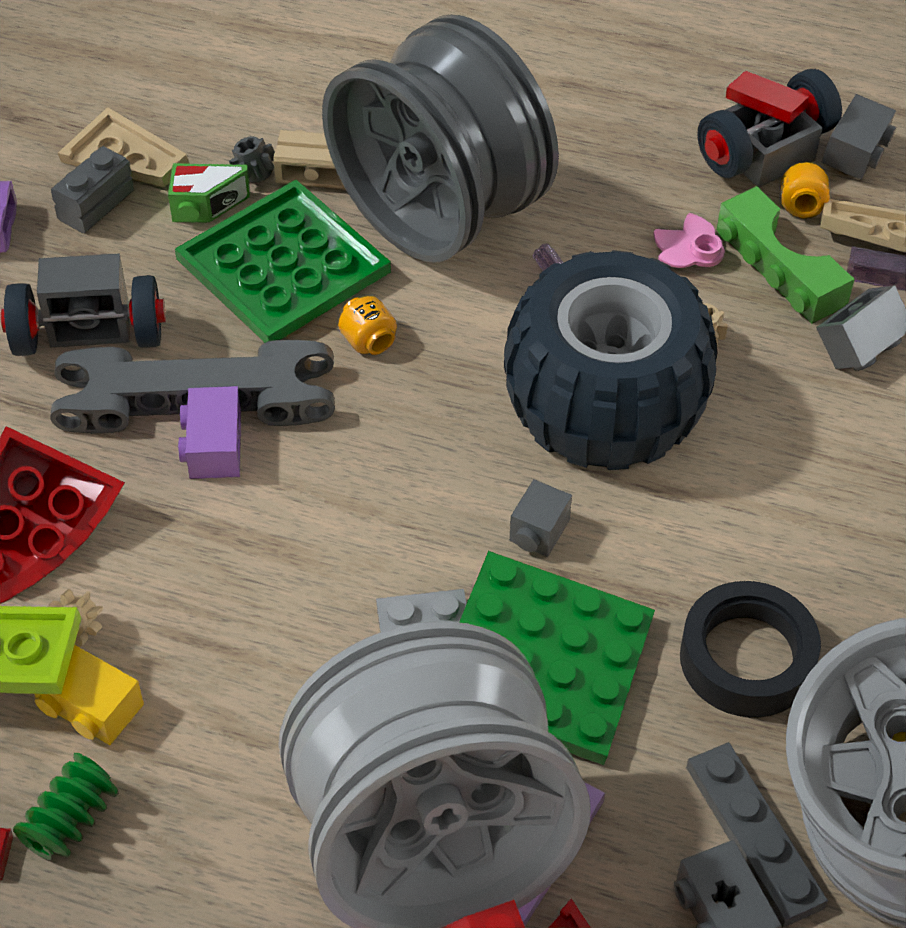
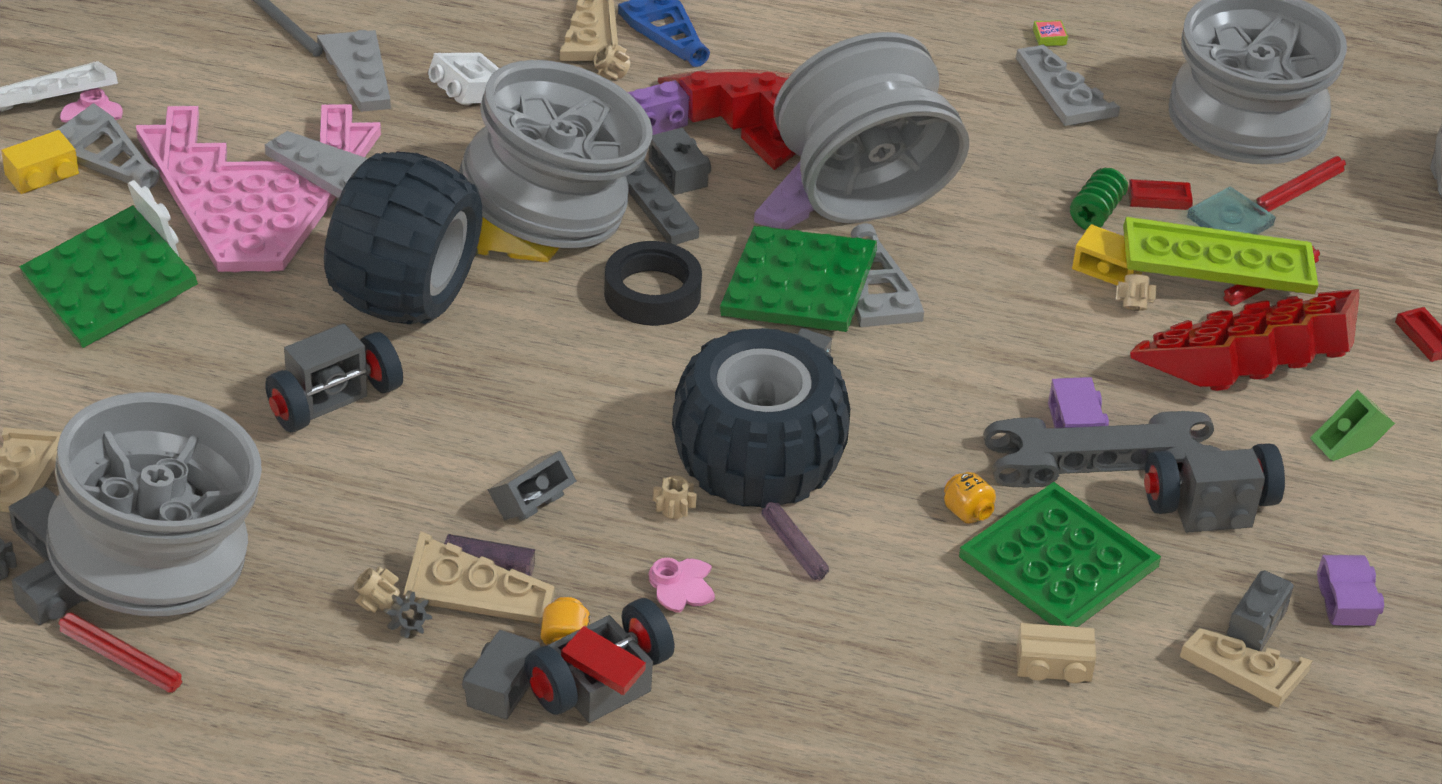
camera: 175 degrees right, 10 degrees down
(206, 190) = (1153, 617): slope -> none
(256, 155) = (1116, 647): dark grey gear -> none
(440, 137) = (934, 557): dark grey wheel -> none
(810, 283) = (571, 535): bright green arch -> none

